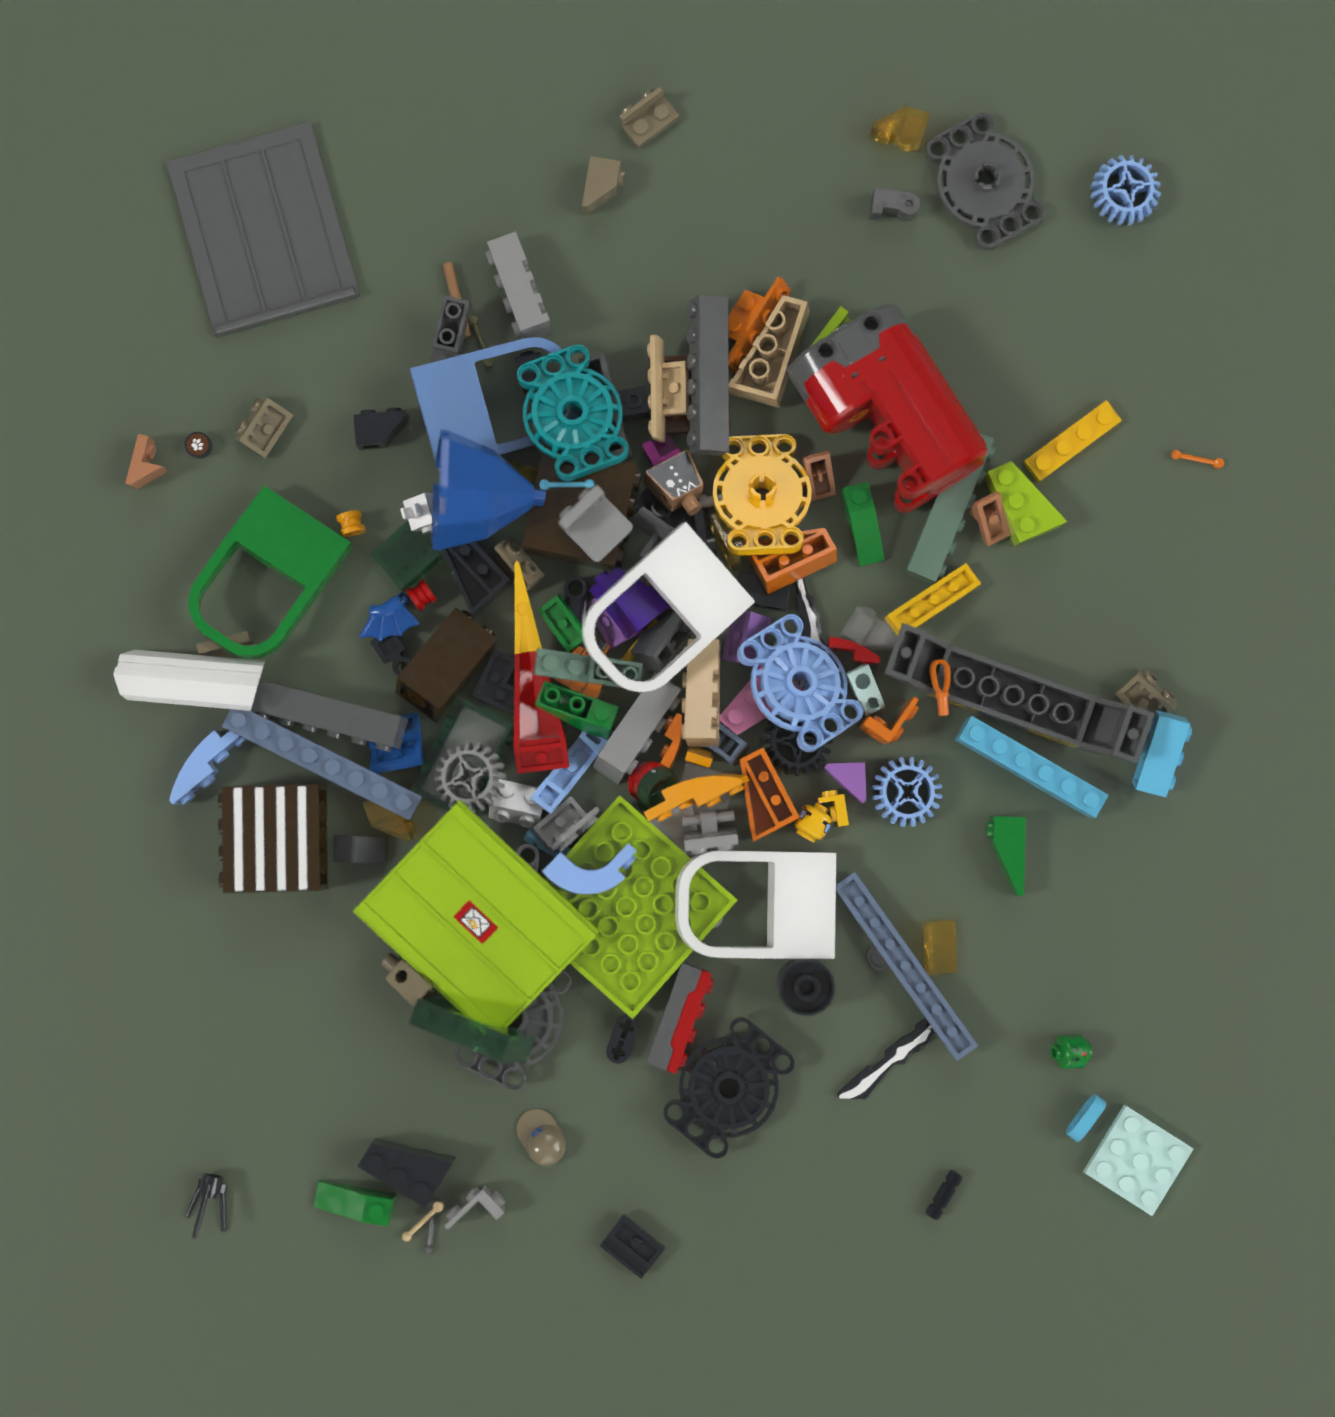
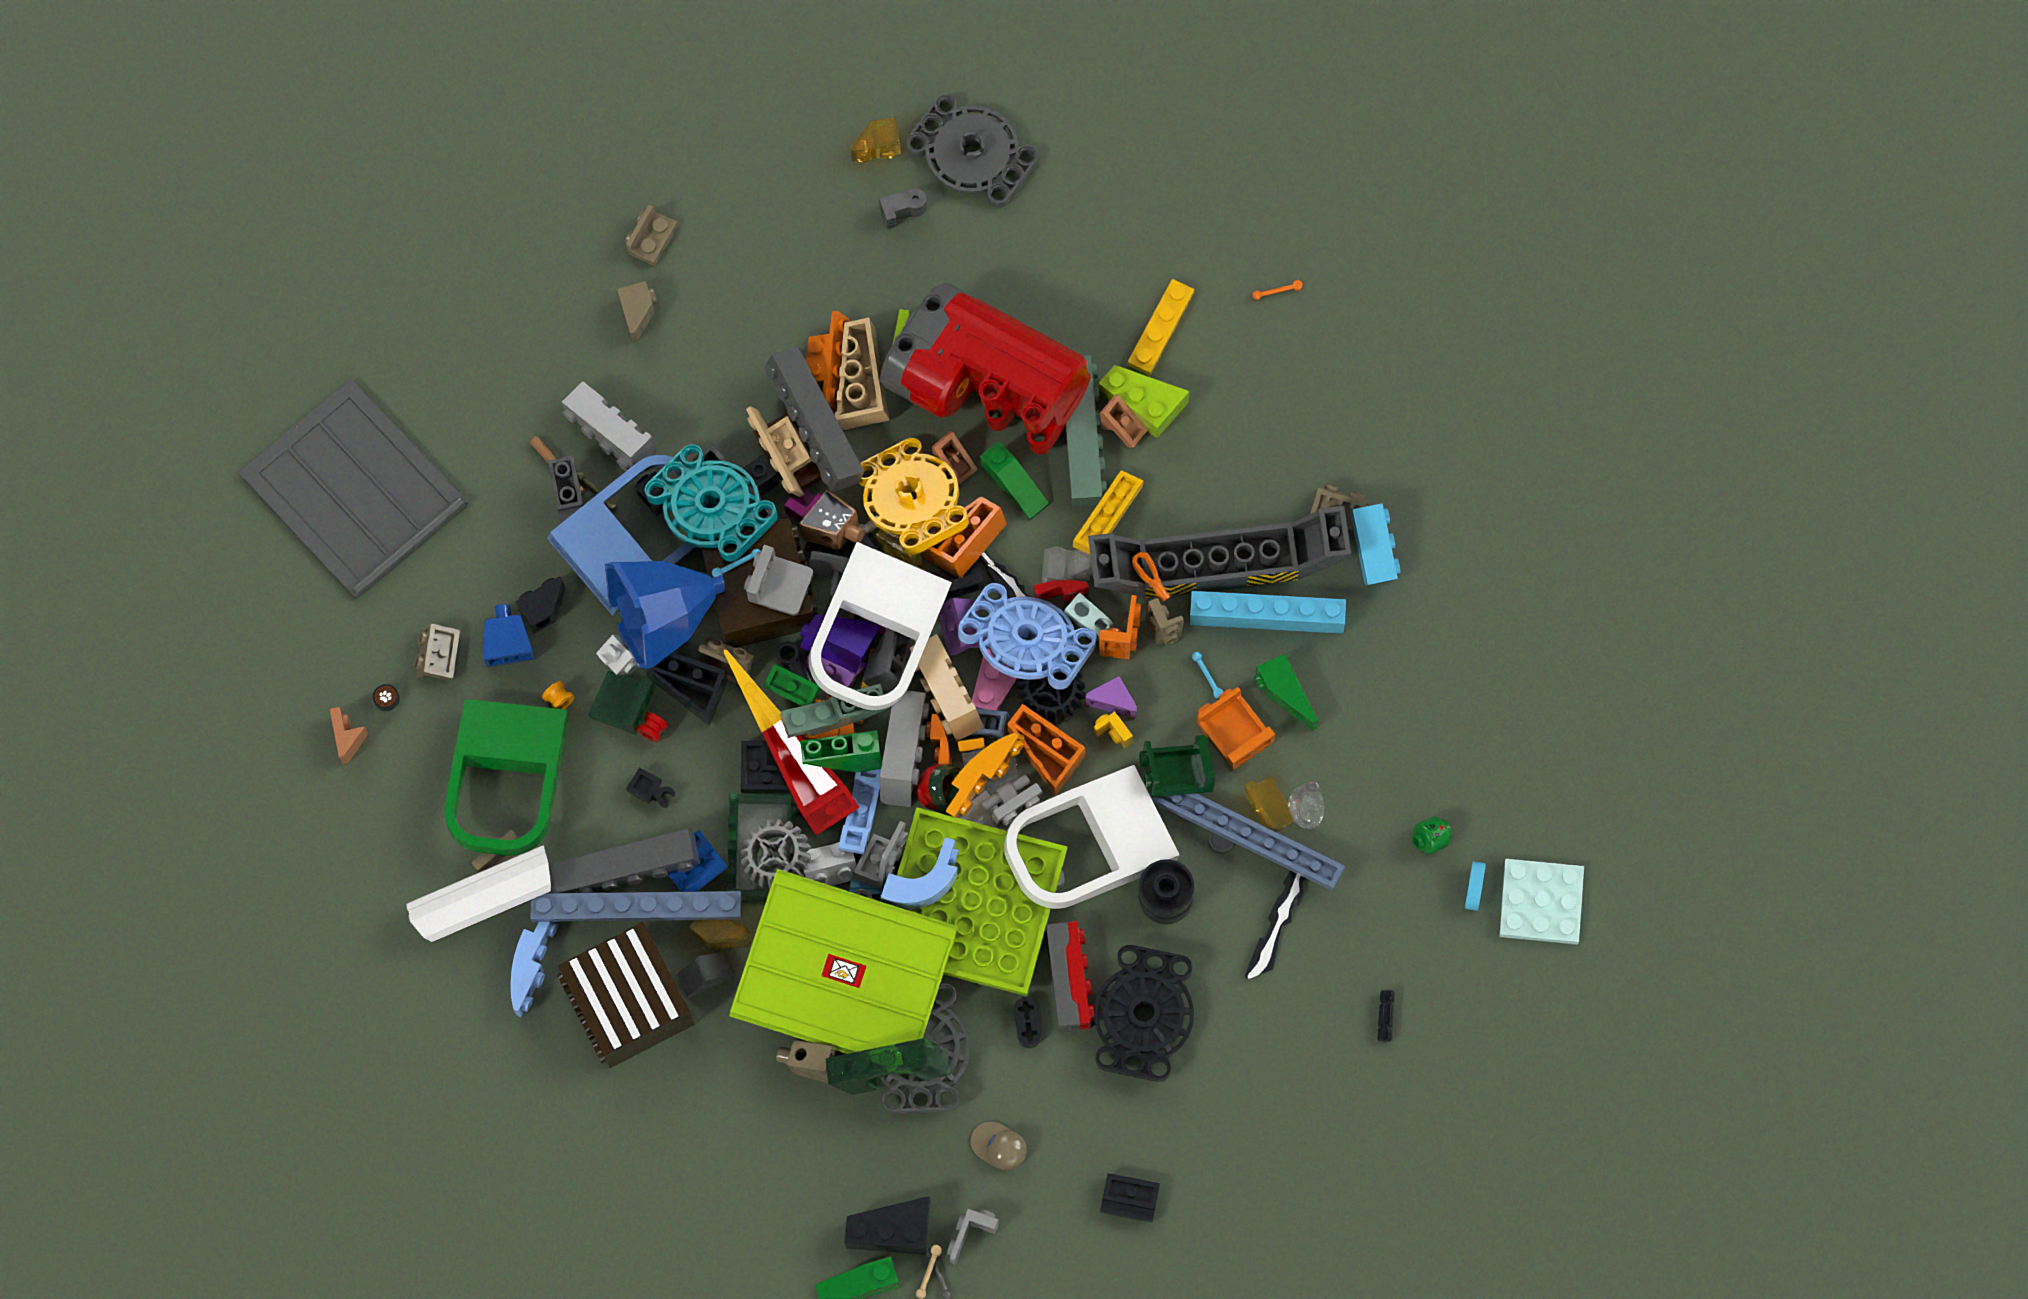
camera: 20 degrees left, 15 degrees down
(330, 444) = (506, 639): none -> blue torso
(389, 618) = (633, 760): blue arm -> none
(445, 664) = (703, 776): dark brown slope -> none
(813, 822) = (1101, 752): yellow head -> none
(874, 875) = (1178, 768): none -> dark green panel
(916, 800) = (1160, 683): light blue gear -> none
(926, 727) = (1162, 629): none -> dark tan bracket
(944, 860) = (1234, 728): none -> orange panel
(946, 817) = (1196, 656): none -> medium azure hinge
(972, 967) = (1306, 805): none -> clear hat
(1125, 170) = (1097, 88): light blue gear -> none

